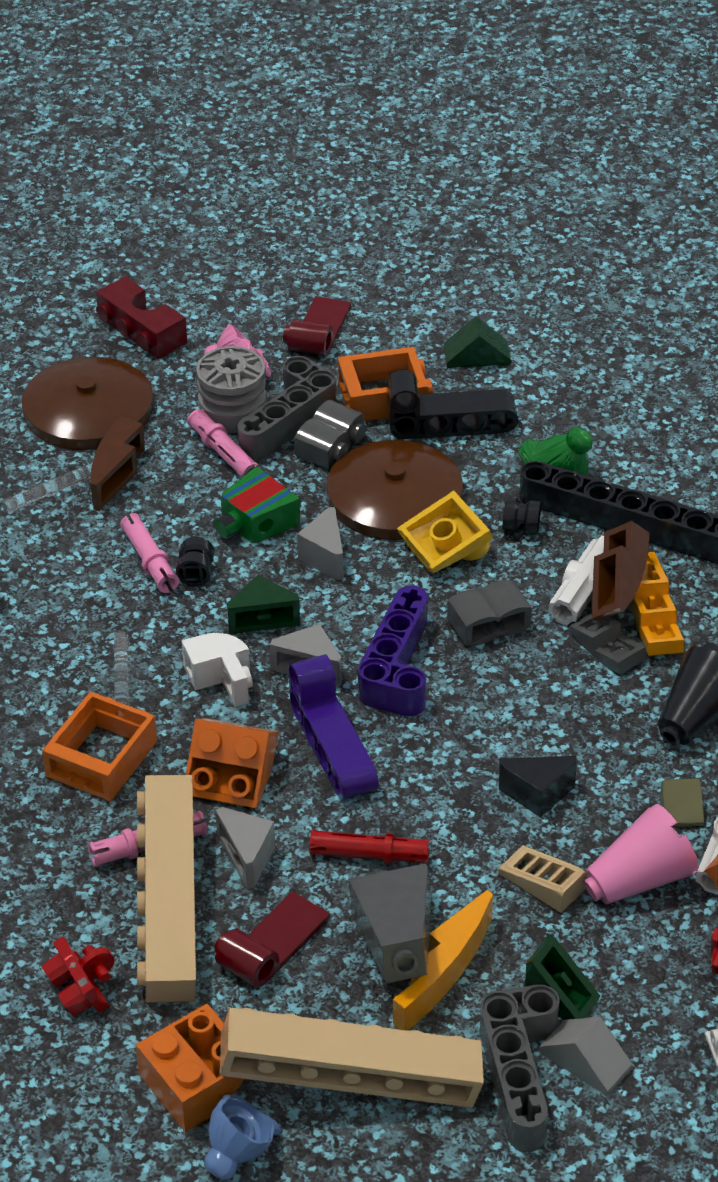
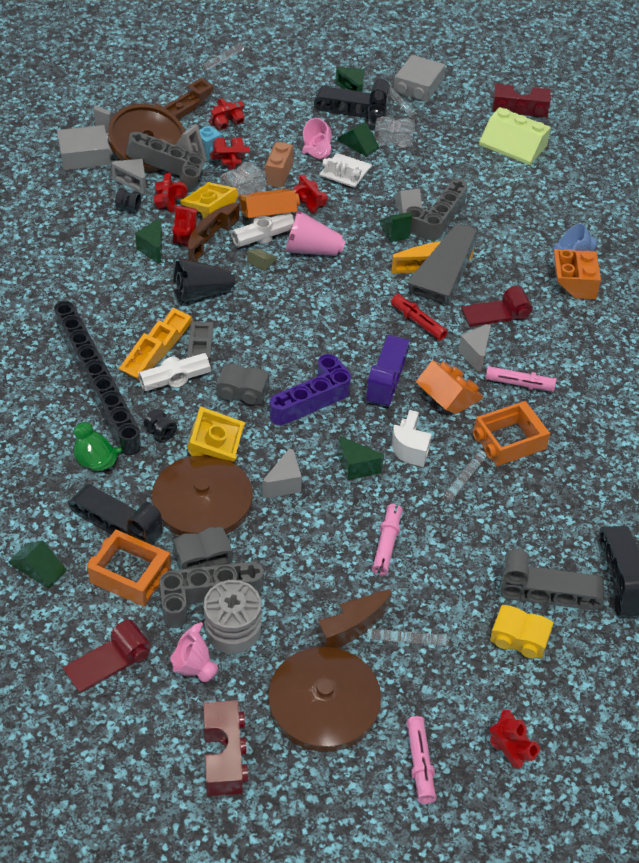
camera: 145 degrees left, 5 degrees up
(69, 964) = (599, 337): red hips -> none
(169, 889) = (532, 340): tan brick -> none
(195, 561) = (368, 511): black wheel -> none
(215, 436) = (271, 599): bright pink pin -> none
(257, 508) = (300, 525): green torso -> none
(302, 646) = (360, 418): light grey slope -> none
(351, 1057) = (517, 230): tan brick -> none
(537, 781) = (313, 295): black slope -> none
(547, 891) = (354, 263): tan slope -> none
(619, 569) = (163, 347): reddish brown slope -> none

